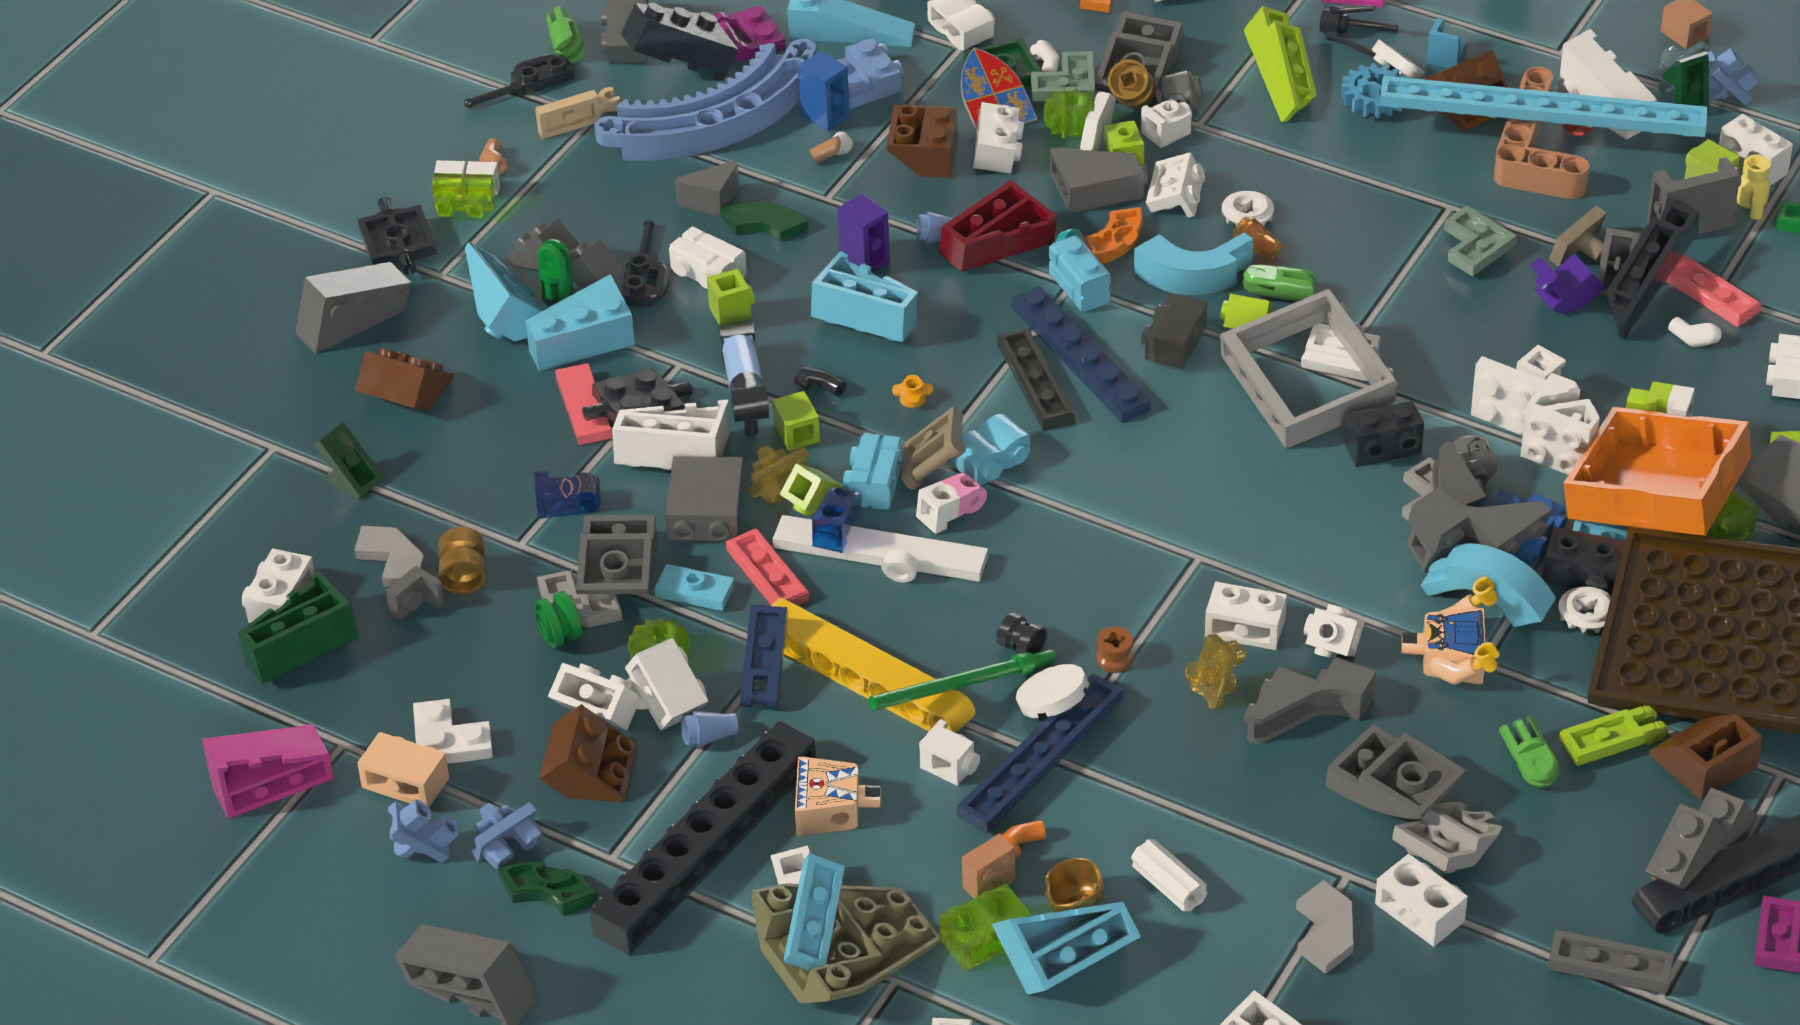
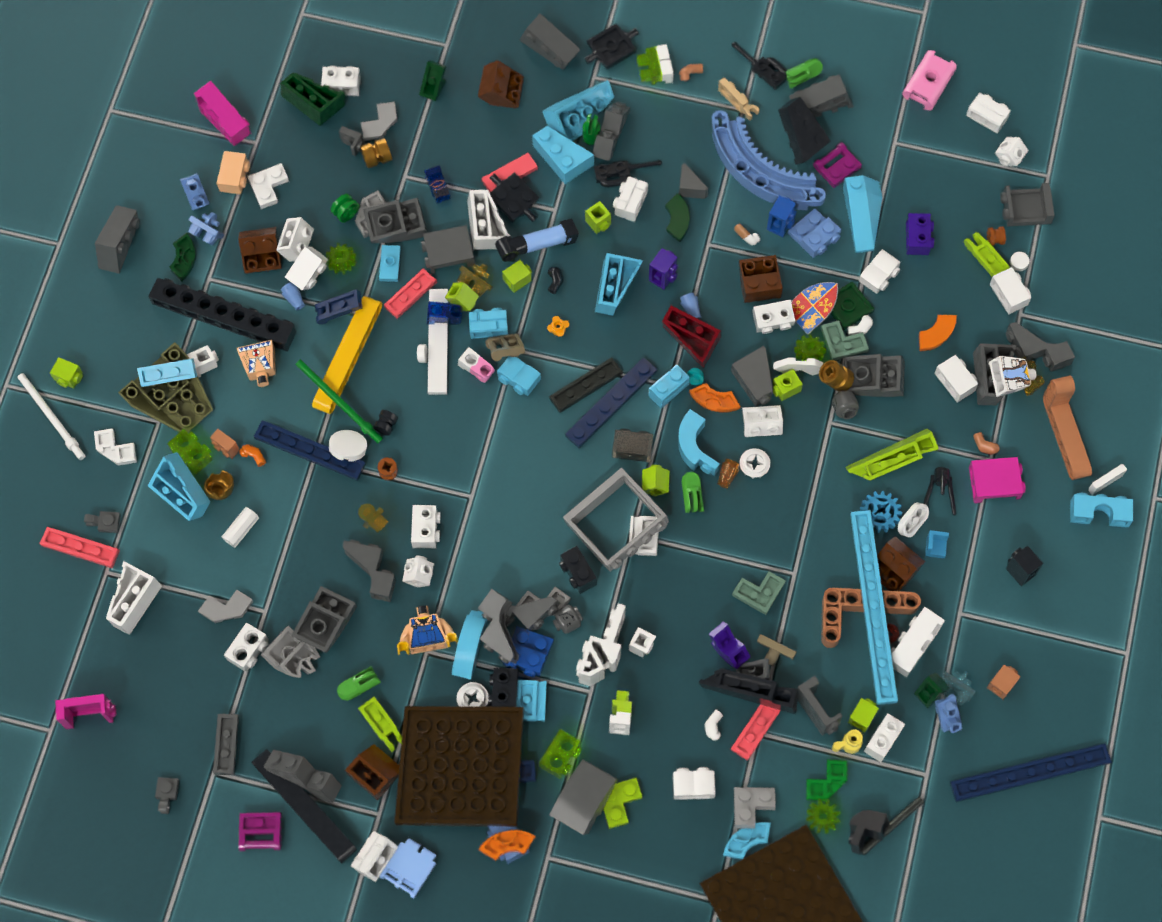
camera: 75 degrees right, 25 degrees up
(948, 754) = (297, 408): white brick -> none
(1166, 122) = (811, 404): white brick -> none
(1658, 471) = (565, 716): orange tile -> none

